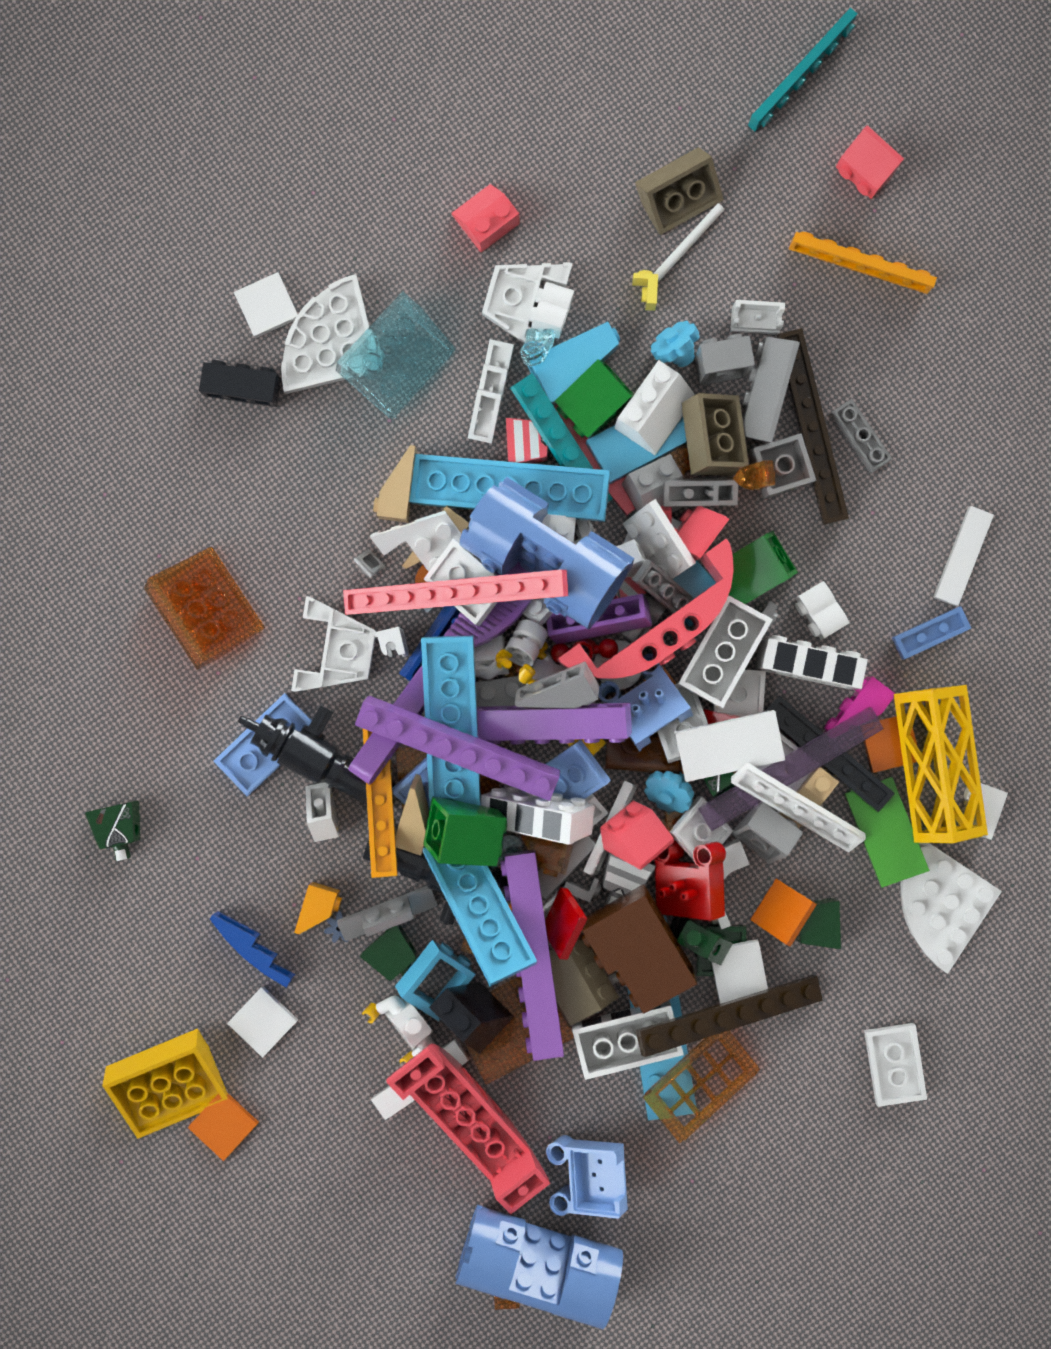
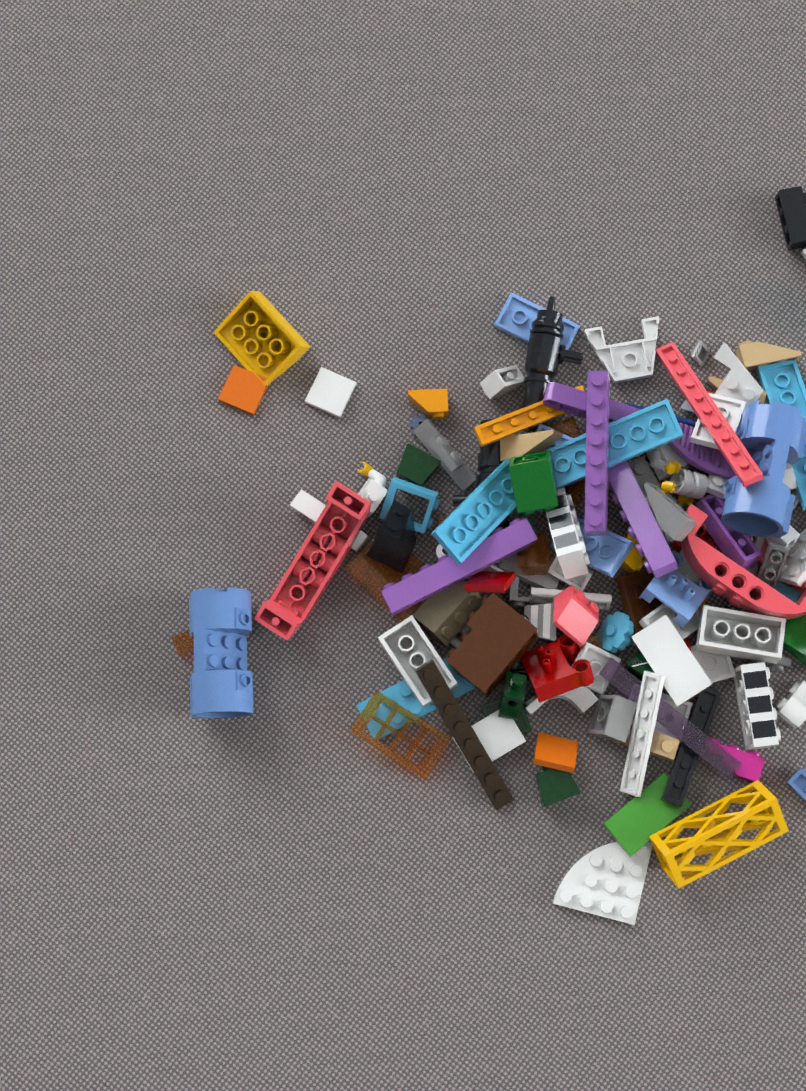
camera: 65 degrees right, 10 degrees down
(116, 827) = (438, 240): dark green torso -> none
(203, 607) = (621, 247): clear orange slope -> none
(245, 943) = (385, 361): blue slope -> none
(392, 639) = (653, 388): white hinge -> none
(594, 1176) = (301, 674): light blue piece -> none
(885, 747) = (713, 789): orange tile -> none
(895, 1064) = (466, 886): white plate -> none
(993, 805) = (699, 889): white slope -> none

